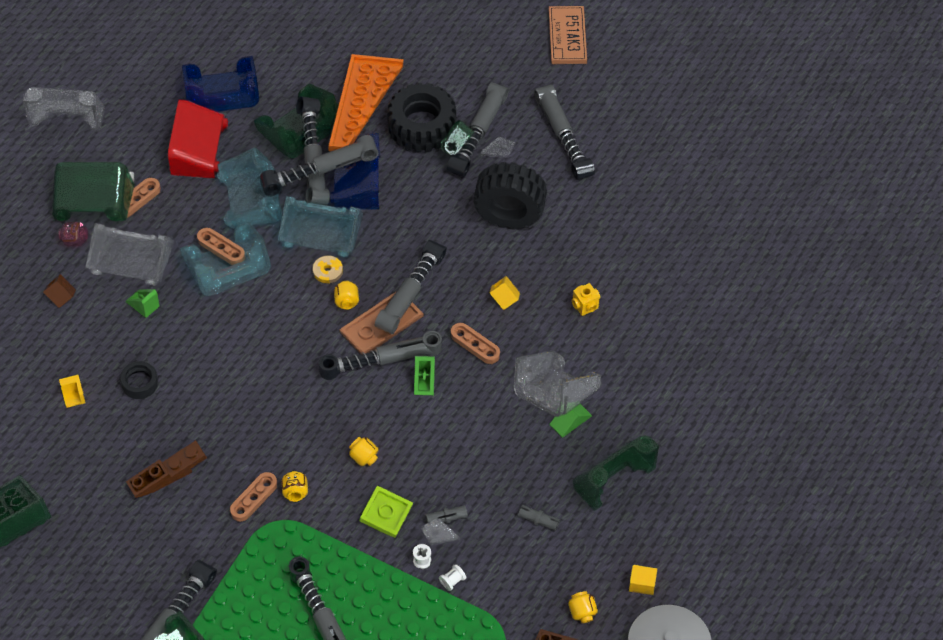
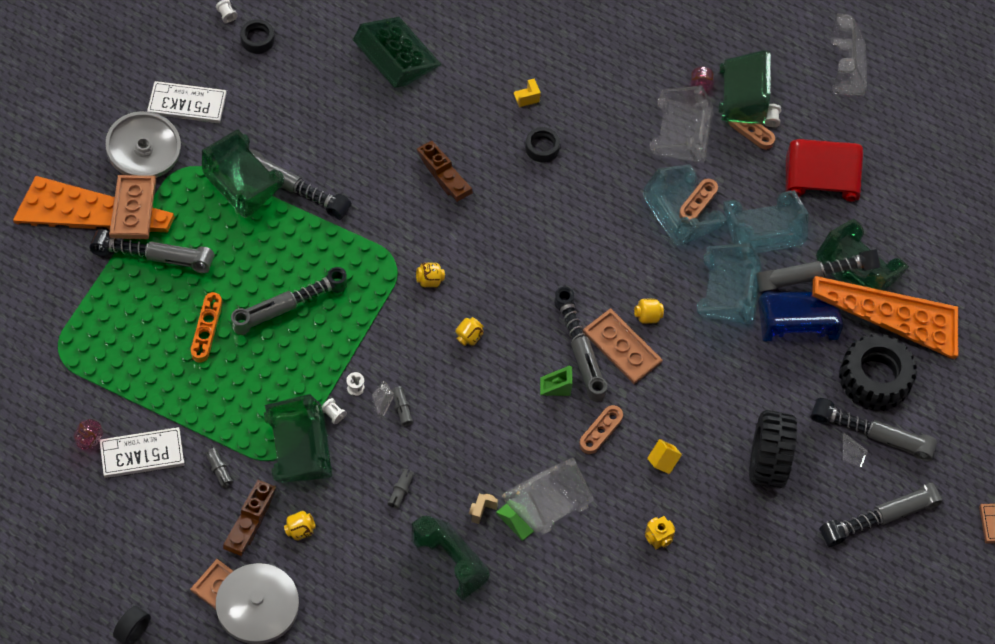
camera: 85 degrees right, 5 degrees up
(59, 291) = (637, 75): reddish brown panel -> none
(144, 301) = (629, 142): bright green slope -> none
(223, 90) = (894, 189): clear blue windscreen -> none
(256, 489) = (415, 237): nougat plate -> none
(327, 276) = (679, 303): piece -> none
(363, 149) = (810, 303): piece -> none
(386, 511) = (405, 353): lime plate -> none
(390, 317) = (617, 345): dark grey piece -> none
(458, 136) = (851, 403): clear green piece -> none
(494, 604) = (299, 439): none -> clear green windscreen
(560, 447) = (482, 501): none -> tan bracket
(643, 579) = (328, 581): yellow panel -> none

